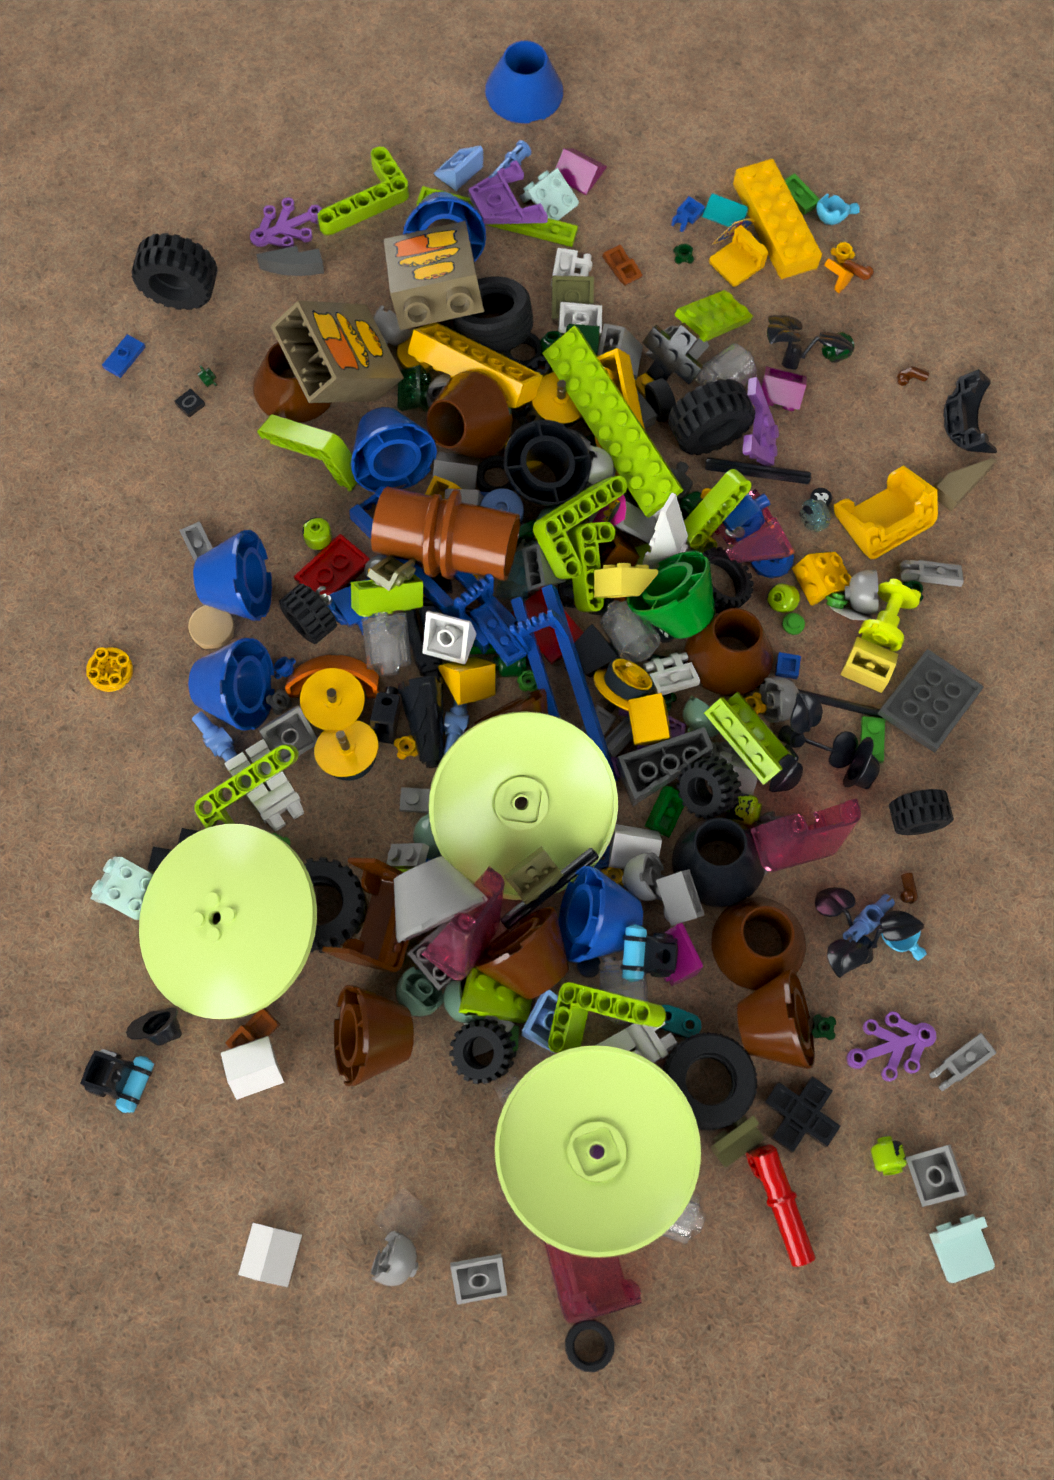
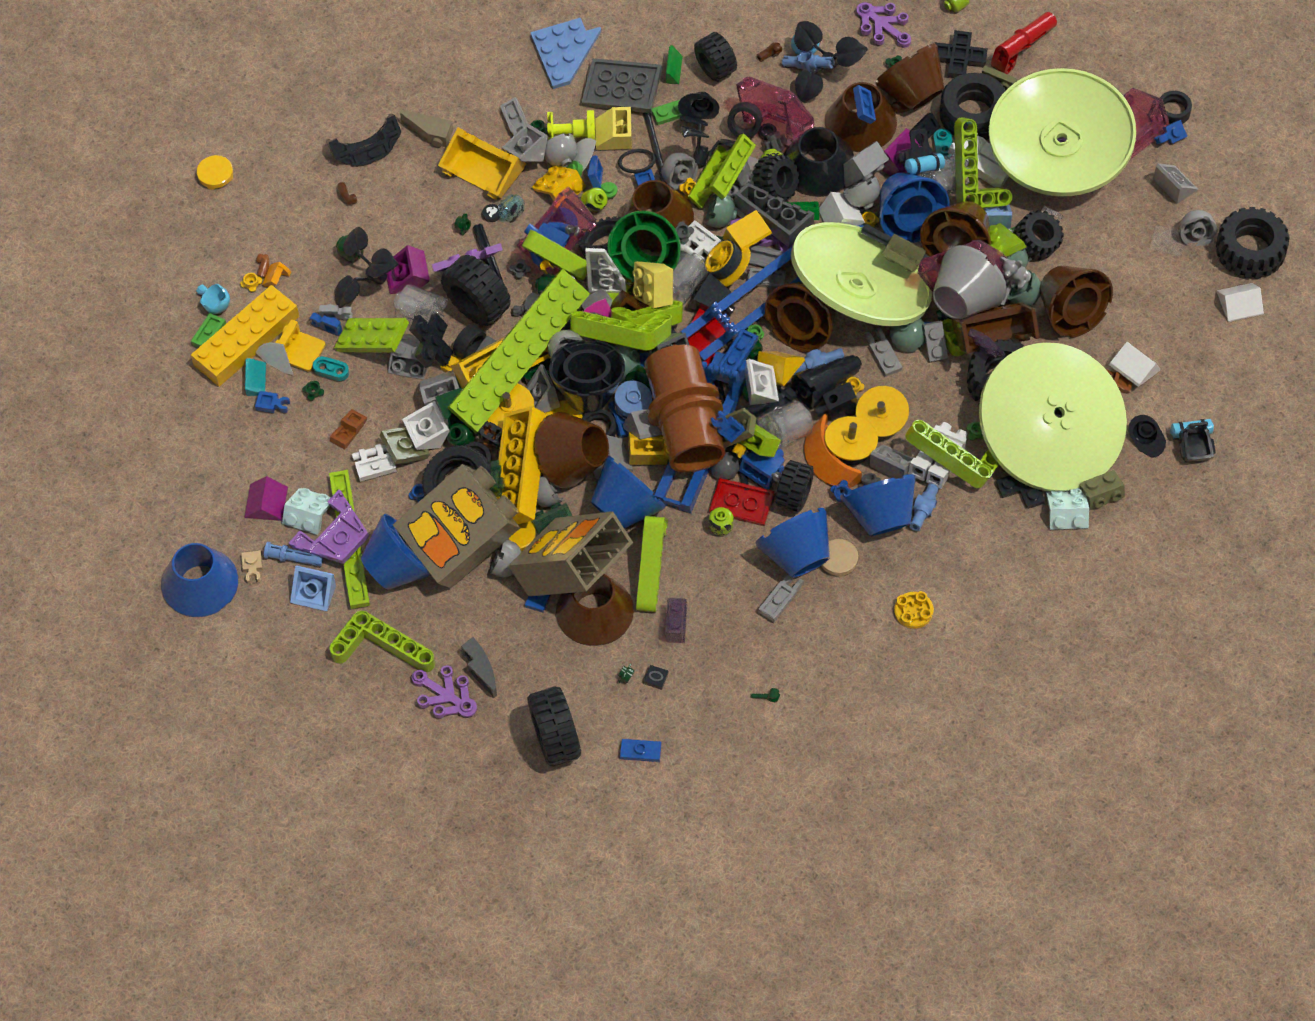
camera: 110 degrees left, 10 degrees down
(102, 490) = (773, 695): none -> dark green hand
(122, 936) = (1103, 489): none -> olive bracket
(233, 442) = (676, 620): none -> clear purple brick
(296, 1310) = (1247, 261): none -> black tyre
(349, 893) = (986, 343): none -> clear purple slope
(388, 553) = (728, 427): none -> blue plate
(427, 983) = (1016, 272): none -> light grey animal
(464, 329) = (496, 474): none -> clear green plate
(515, 133) = (252, 563): none -> tan plate
(552, 1320) = (1173, 133): none -> blue plate
(687, 657) = (688, 231): none -> dark grey plate
(698, 277) = (332, 367): none -> teal plate
(707, 1004) = (929, 123): none -> black plate
(751, 922) = (864, 104): none -> blue plate
(752, 294) = (327, 324): none -> blue plate
(767, 301) = (333, 311): none -> light grey plate
(802, 677) = (637, 170): none -> black tyre
(815, 802) = (747, 107): none -> black tyre
(818, 462) = (462, 223): none -> dark green plate
(818, 613) = (595, 172): none -> blue plate
(884, 554) = (527, 144): none -> light grey slope
(935, 770) = (673, 66): none -> green slope
(997, 271) = (215, 172): none -> yellow tile
(1014, 667) = (564, 49): none -> medium blue wing

